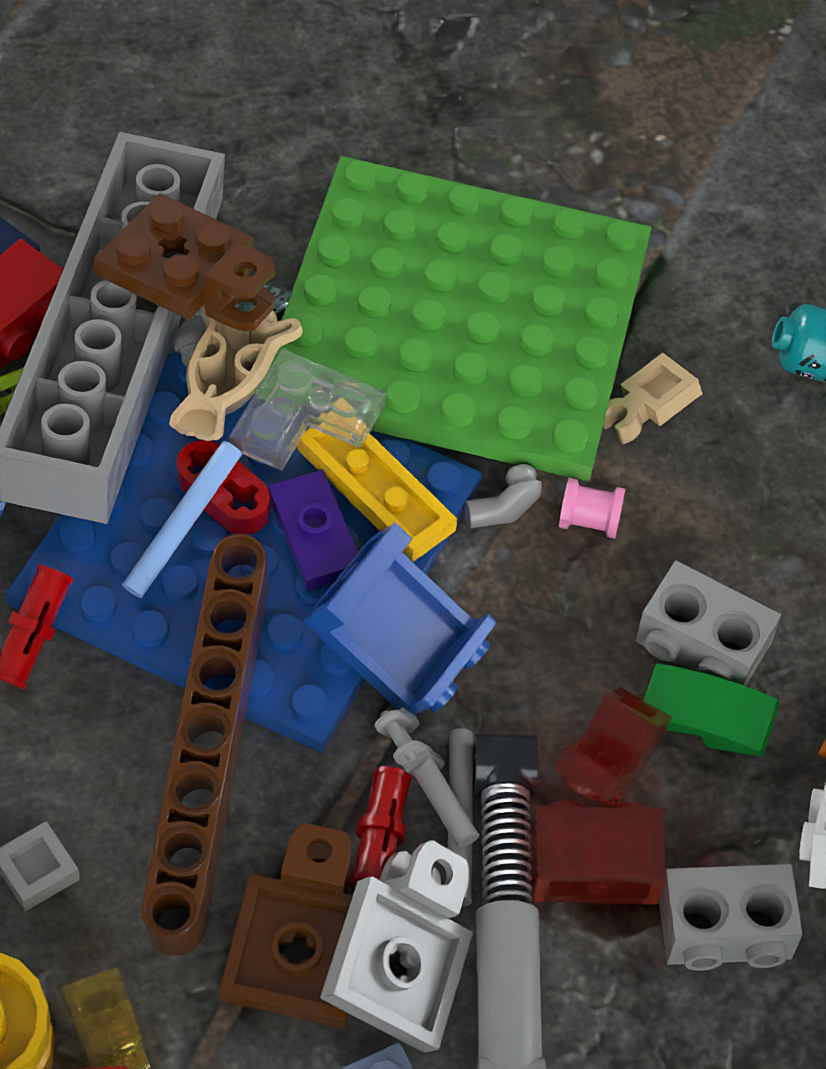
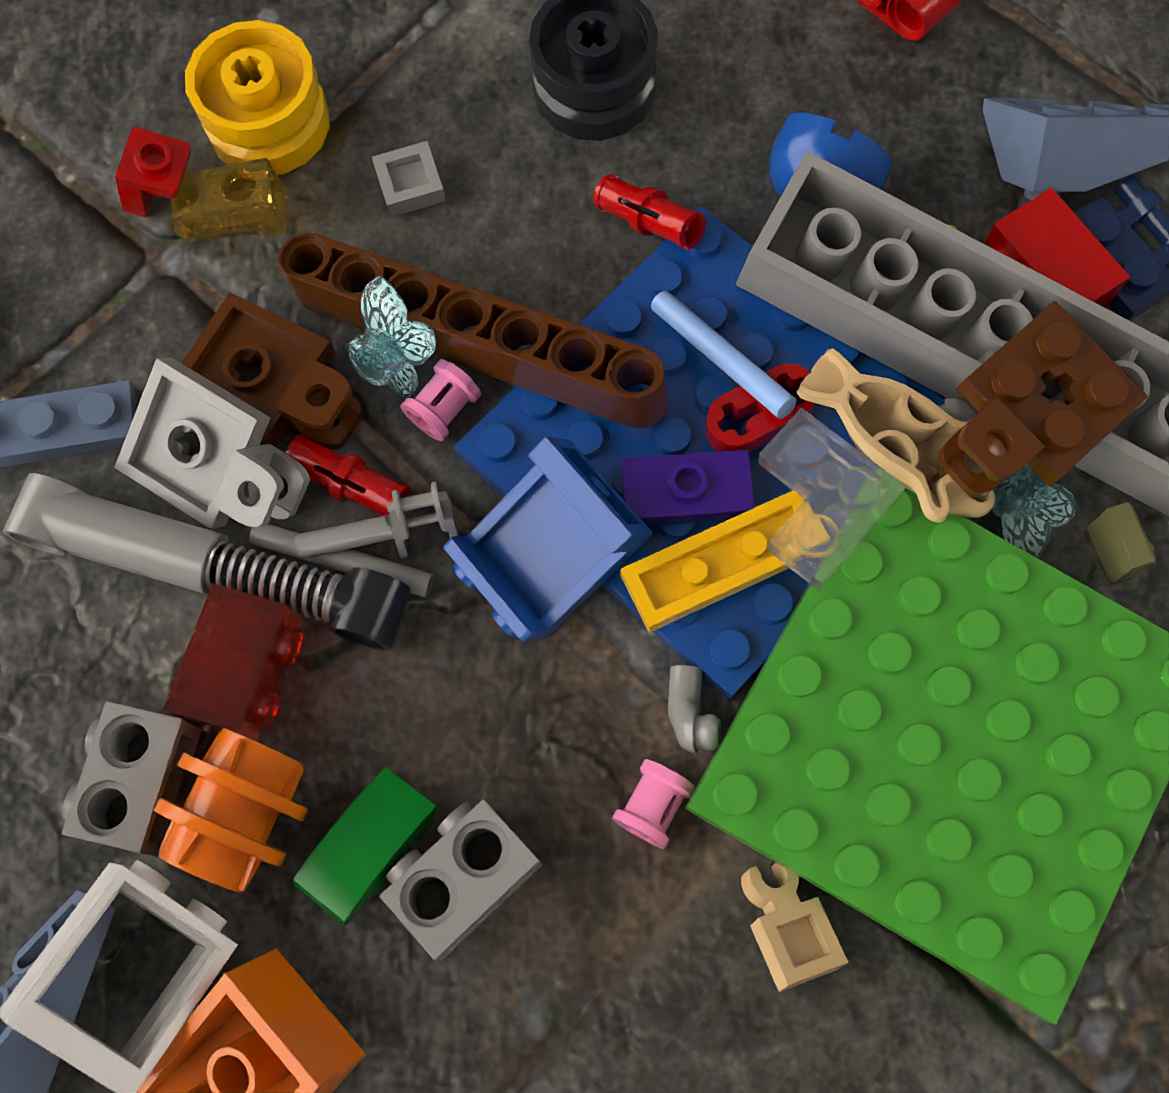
camera: 115 degrees right, 15 degrees up
(246, 805) = (390, 341): none -> clear light blue animal
(266, 223) = (1121, 543): none -> olive tile
(278, 765) = (441, 400): none -> bright pink bush
(613, 748) = (338, 714): clear red brick -> none
(727, 802) = (230, 811): none -> orange piece

